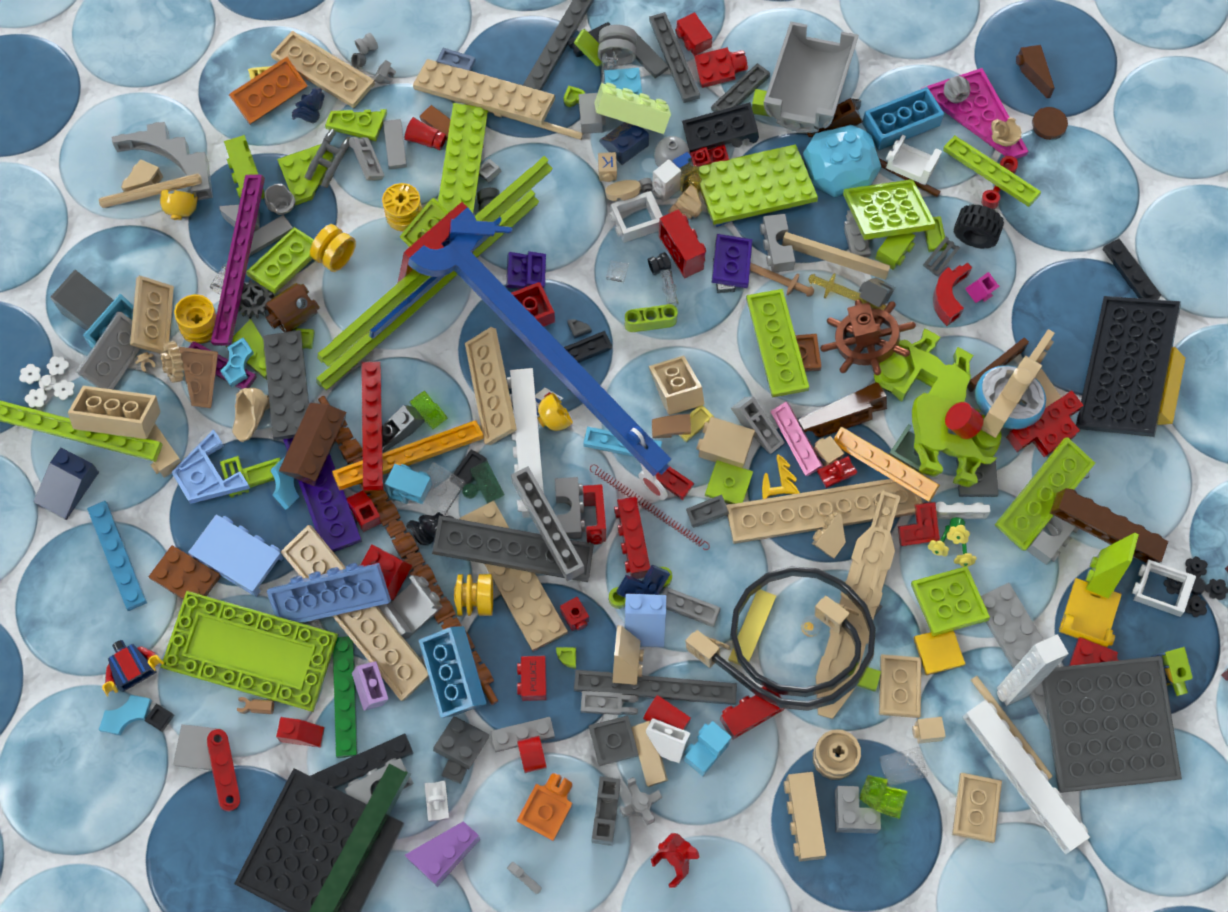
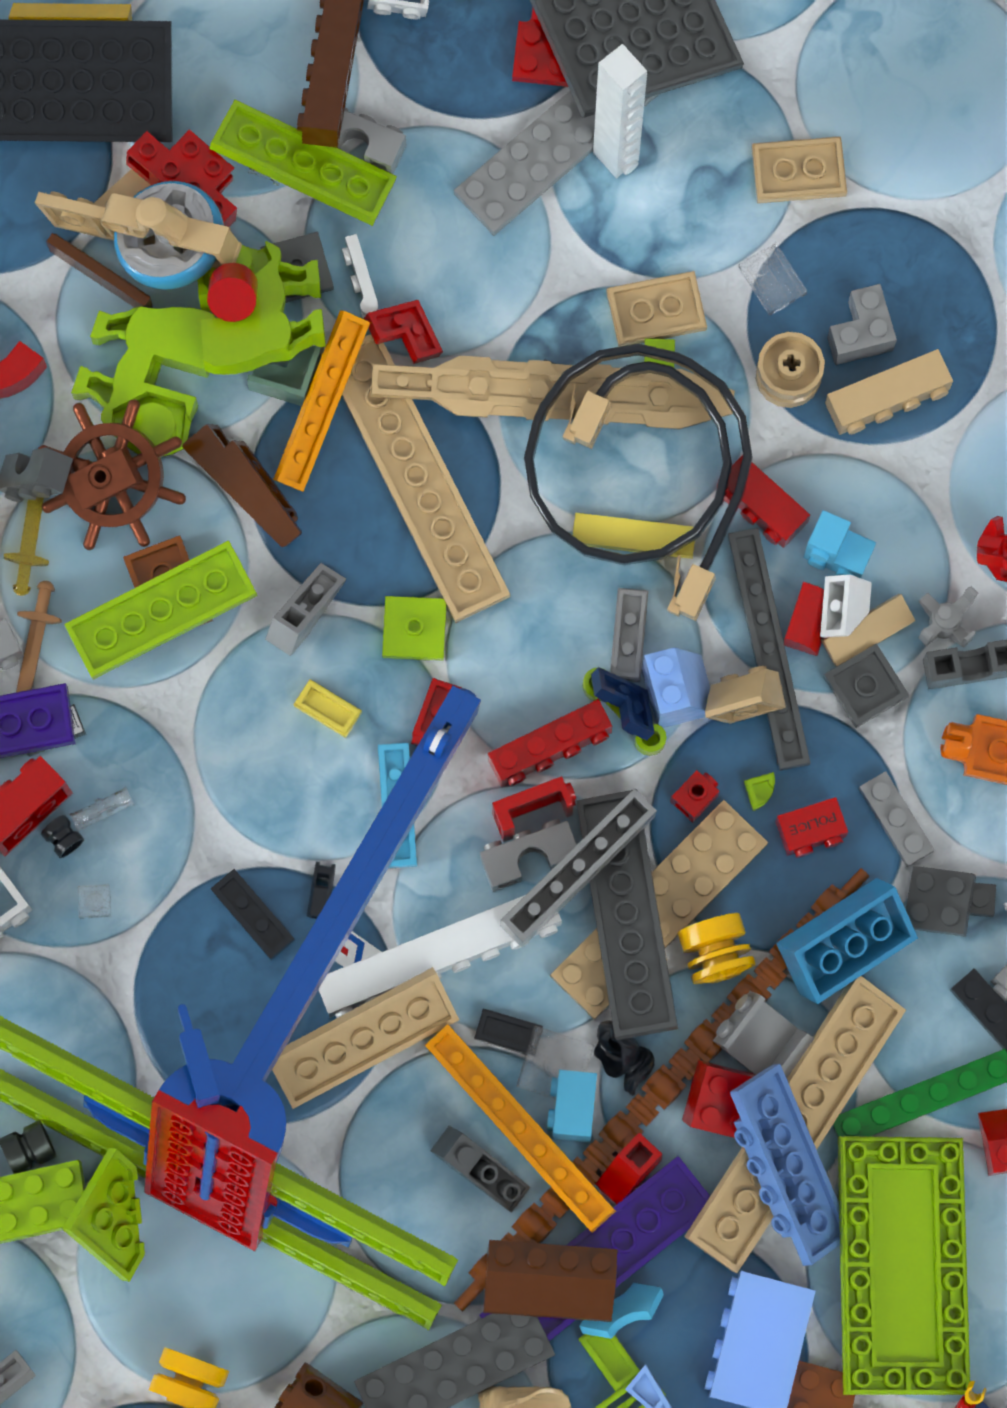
camera: 105 degrees left, 10 degrees up
(256, 706) = (981, 1223): medium nougat bar -> none
(307, 337) = (352, 1372): lime tile -> none
(370, 686) = (902, 1060): lavender brick -> none
(372, 426) = (504, 1194): red plate -> none
(401, 205) = (90, 1301): yellow wheel -> none
(428, 410) = (426, 1128): clear neon green slope -> none
(485, 482) = (526, 995): clear green plate -> none
(525, 269) = (132, 1049): dark purple slope -> none
(532, 754) = (926, 791): red piece -> none
(537, 303) = (210, 1011): red brick -> none
(553, 414) = (382, 923): yellow cylinder -> none
(578, 328) = (212, 935): dark grey tile -> none
(607, 703) = (814, 711): light grey hinge -> none
(648, 507) = (487, 734): piece -> none
(656, 312) = (159, 809): lime beam -> none
(671, 425) = (345, 739): medium nougat slope -> none
(677, 385) = (272, 749): tan slope -> none
(707, 511) = (473, 645): dark grey plate -> none
(725, 442) = (351, 648): tan brick -> none
(786, 486) = (393, 541): yellow piece -> none
(796, 439) = (312, 544): bright pink plate -> none
(811, 626) = (605, 453): clear tile -> none
(828, 451) = (322, 492): tan brick -> none
(832, 536) = (462, 452): tan slope -> none
(837, 472) = (353, 469): red hips -> none
(883, 798) = (831, 291): clear neon green slope -> none
(929, 730) = (712, 253): tan brick -> none
(939, 652) = (587, 266): yellow tile -> none
(950, 601) = (510, 264): lime plate -> none
(957, 532) = (412, 269): light yellow plant -> none
(1015, 732) = (670, 146): tan piece -> none
(1026, 777) = (736, 113): white brick -> none
(1090, 615) = (470, 70): yellow door -> none
(1110, 566) = (396, 46): lime slope -> none

